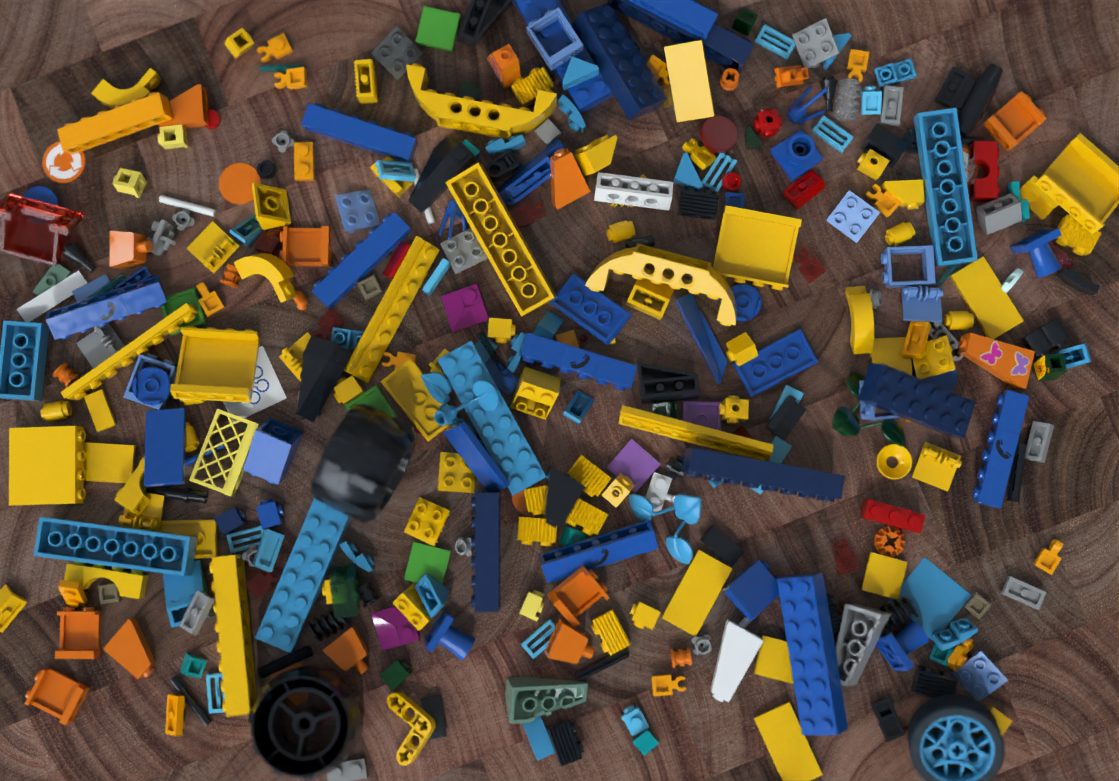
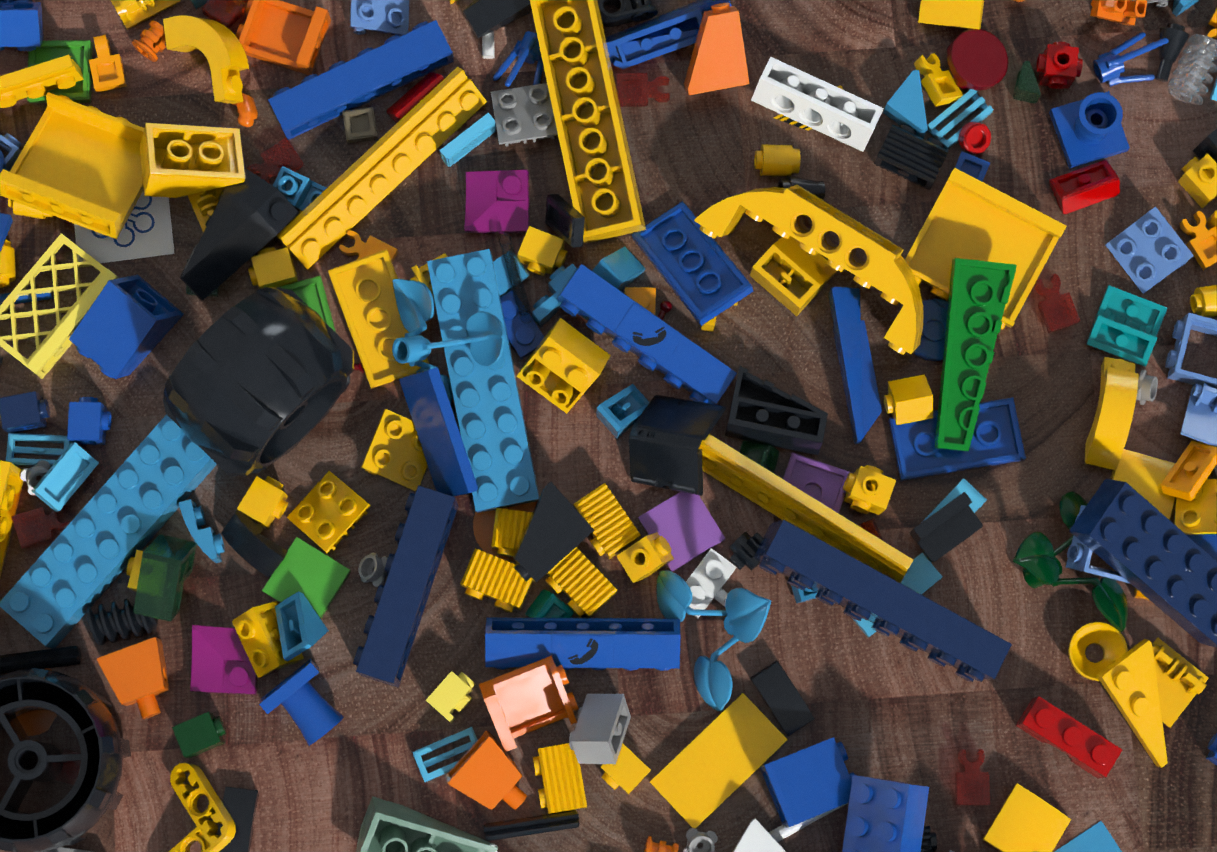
camera: 10 degrees right, 5 degrees down
(278, 341) = (189, 159): none -> yellow slope
(367, 595) = (196, 596): black bush -> none
(384, 552) = (246, 539): none -> black slope
(388, 527) = (264, 501): none -> yellow brick
(508, 307) = (565, 220): none -> black tile
(595, 155) = (775, 29): yellow slope -> none
(610, 418) = (668, 441): none -> black piece
(624, 598) = (600, 729): none -> light grey brick
(765, 293) = (972, 326): none -> green wing
(830, 141) = (1147, 123): medium azure tile -> none
(853, 264) = (1126, 325): none -> teal slope
(881, 539) = (1039, 770): orange gear -> none
(921, 477) = (1134, 689): none -> yellow wing

